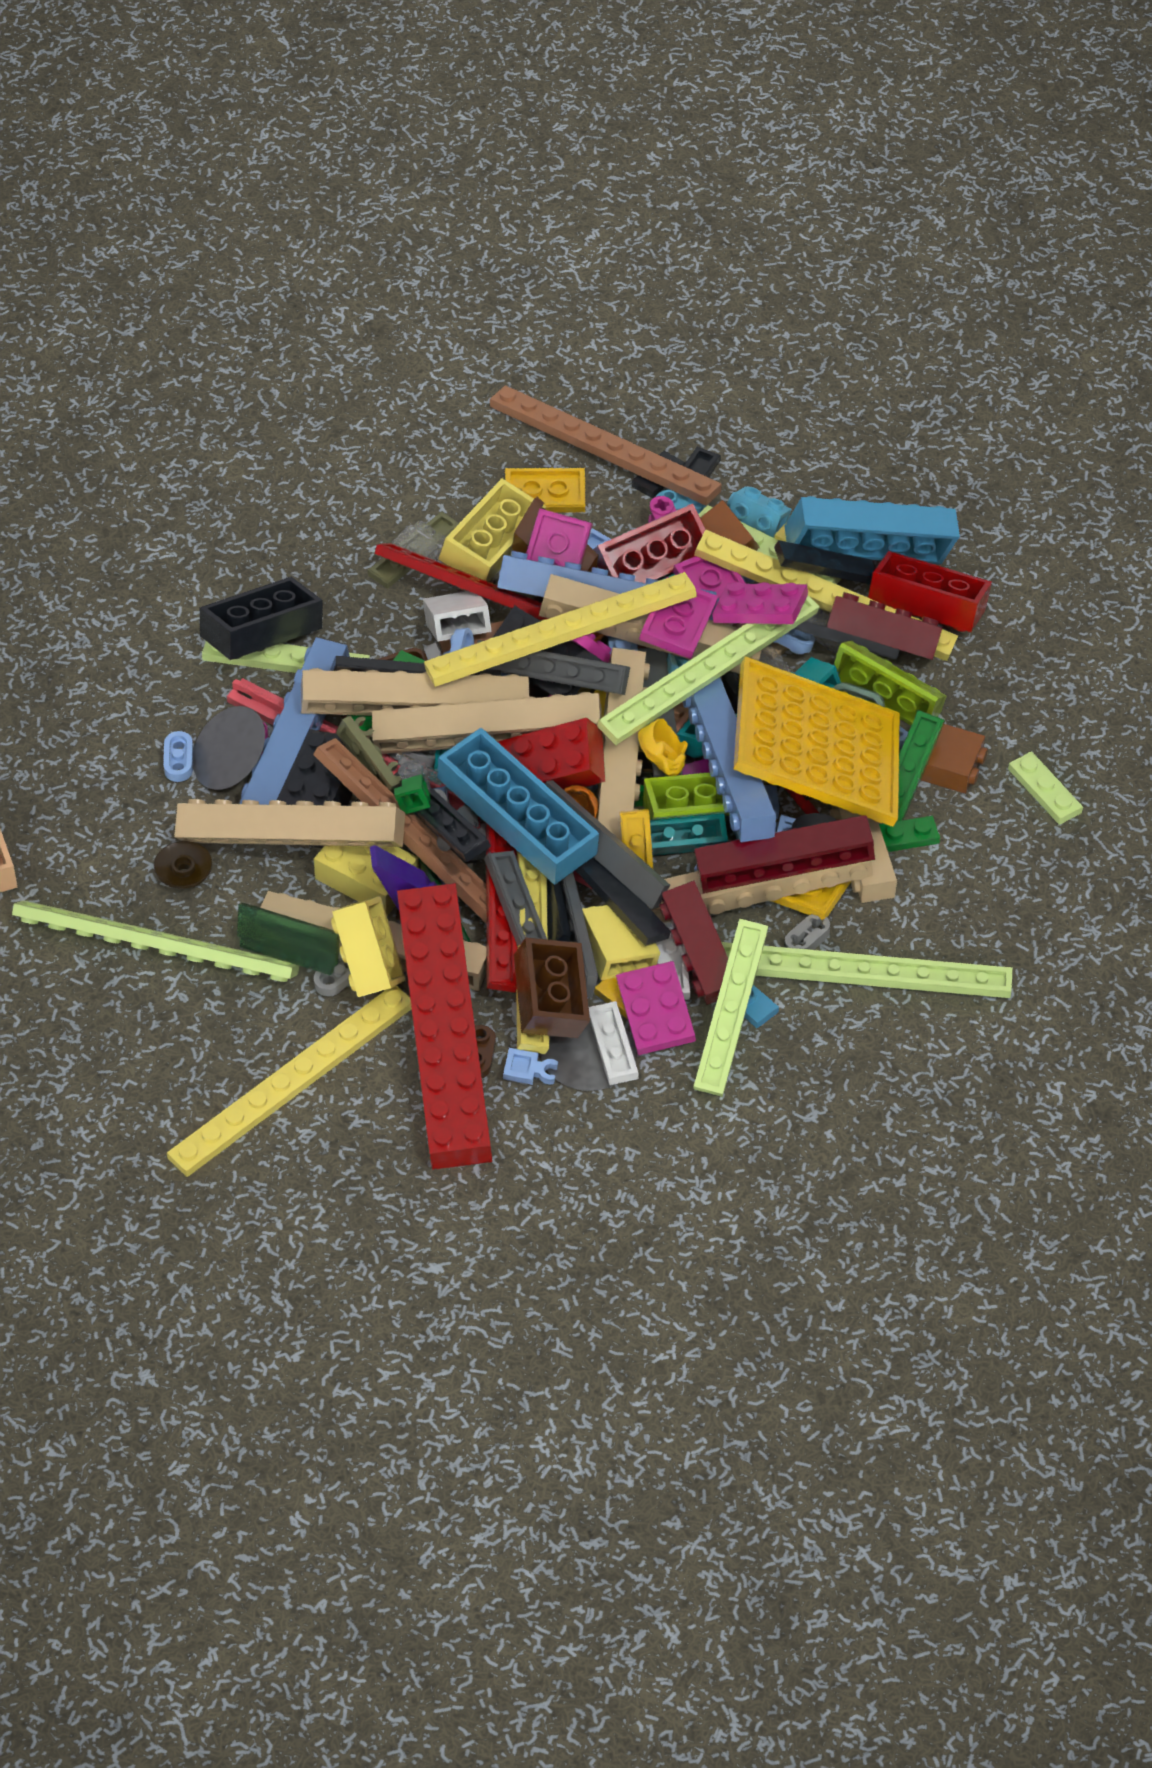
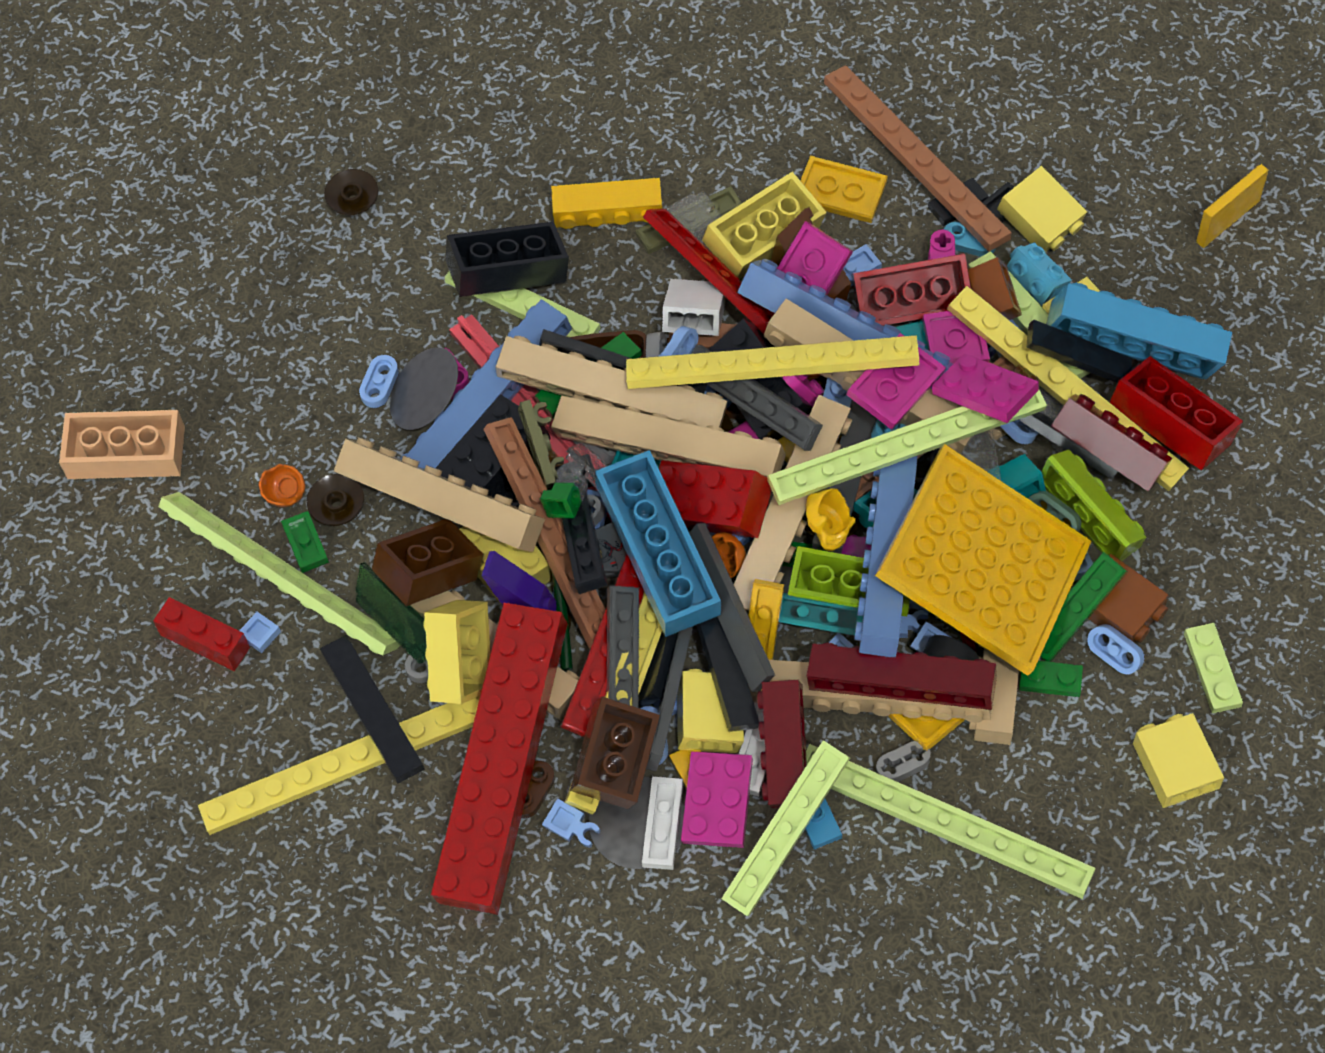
camera: 25 degrees right, 10 degrees up
(77, 603) = (347, 184): none -> dark brown dish
(105, 1009) = (201, 634): none -> red brick
(126, 866) = (282, 485): none -> orange hair
(159, 994) = (260, 632): none -> light blue plate
(168, 908) = (305, 541): none -> green plate
(300, 1024) = (372, 709): none -> black tile
(304, 882) = (427, 561): none -> reddish brown brick
(330, 552) = (604, 202): none -> yellow brick
(740, 459) = (1042, 210): none -> light yellow brick
(908, 414) = (1232, 205): none -> yellow tile
(956, 794) = (1116, 650): none -> light blue plate
(1046, 865) = (1177, 759): none -> light yellow brick

